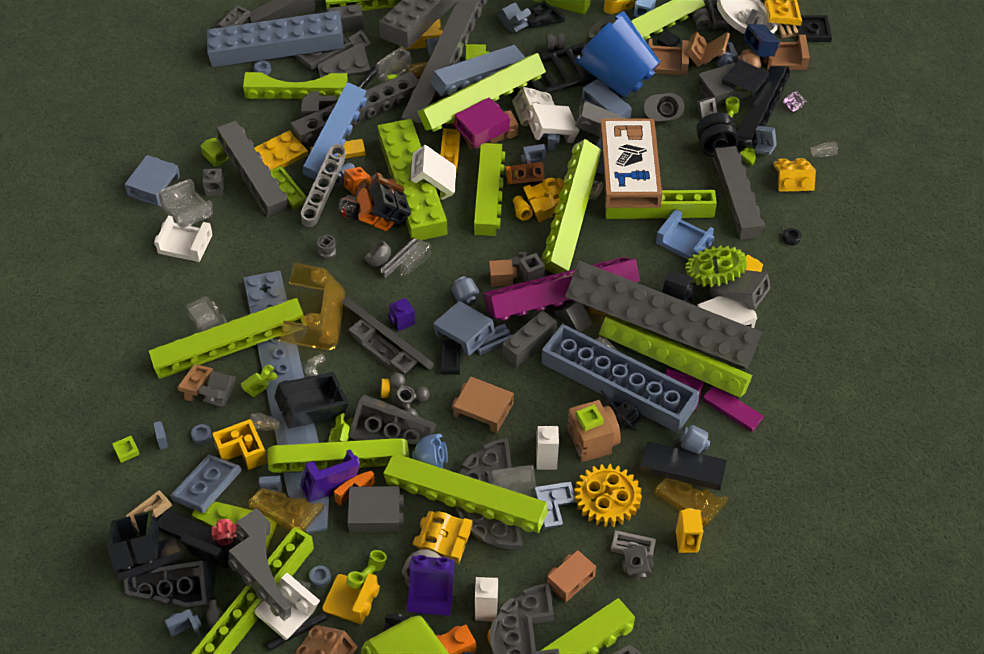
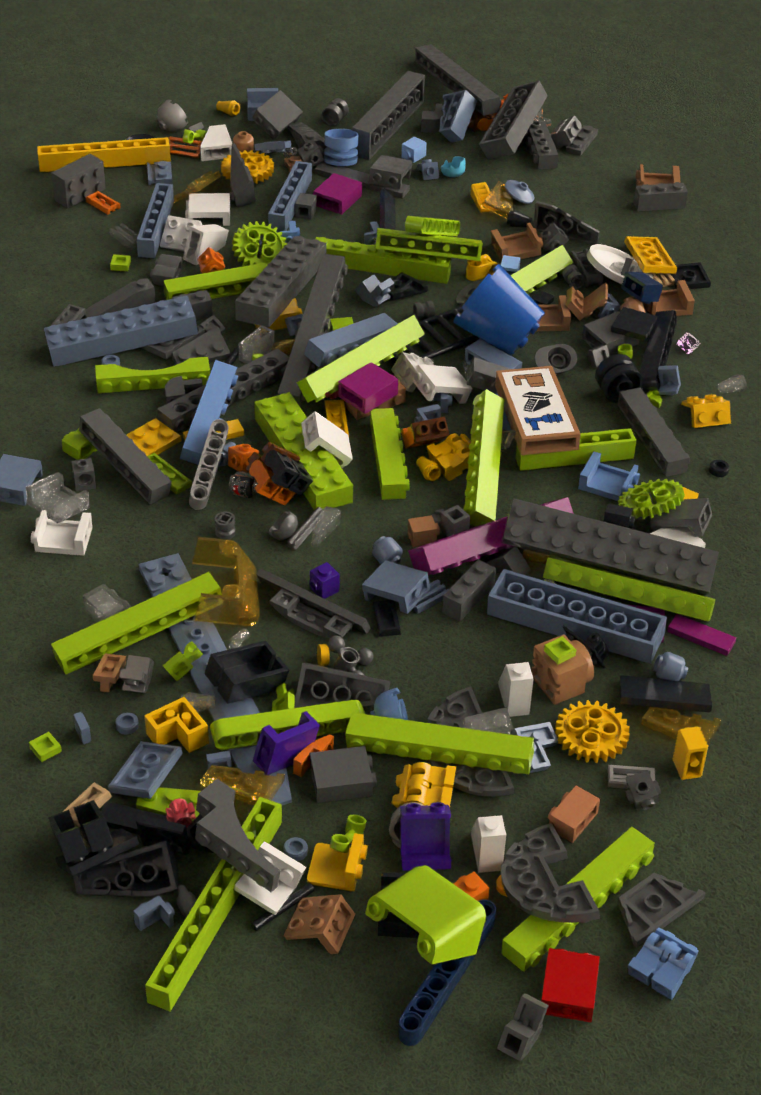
camera: 10 degrees left, 10 degrees down
(484, 403) = (435, 656): medium nougat panel -> none

